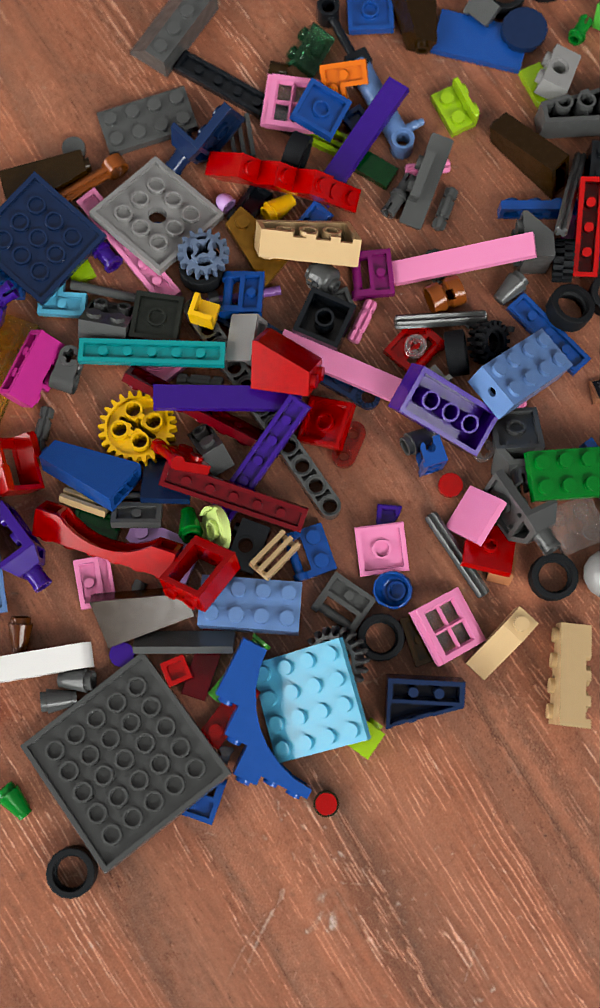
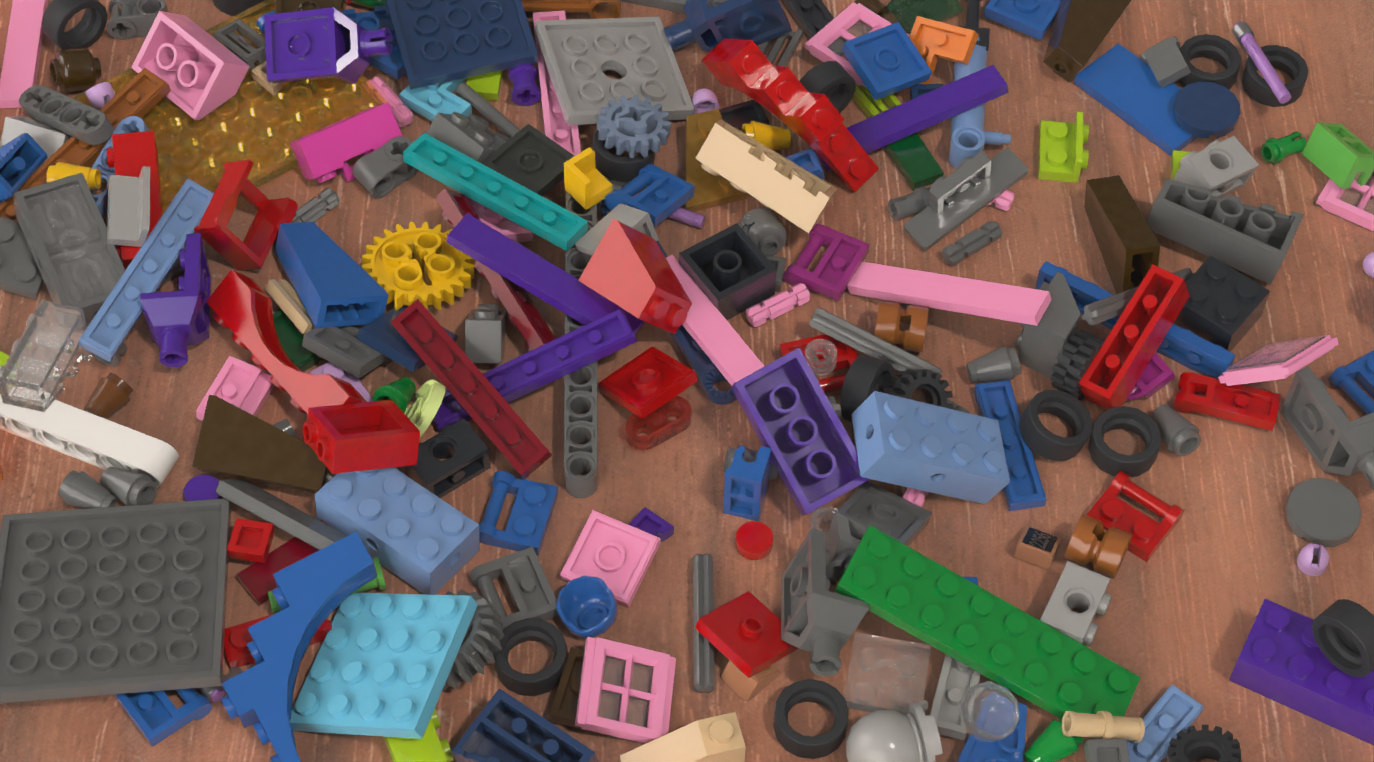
camera: 30 degrees right, 25 degrees down
(48, 325) = (401, 112): none -> bright pink axle
(181, 457) = (445, 314): red plate -> none
(288, 541) = (468, 473): tan tile -> none
(476, 515) = (757, 580): bright pink tile -> none

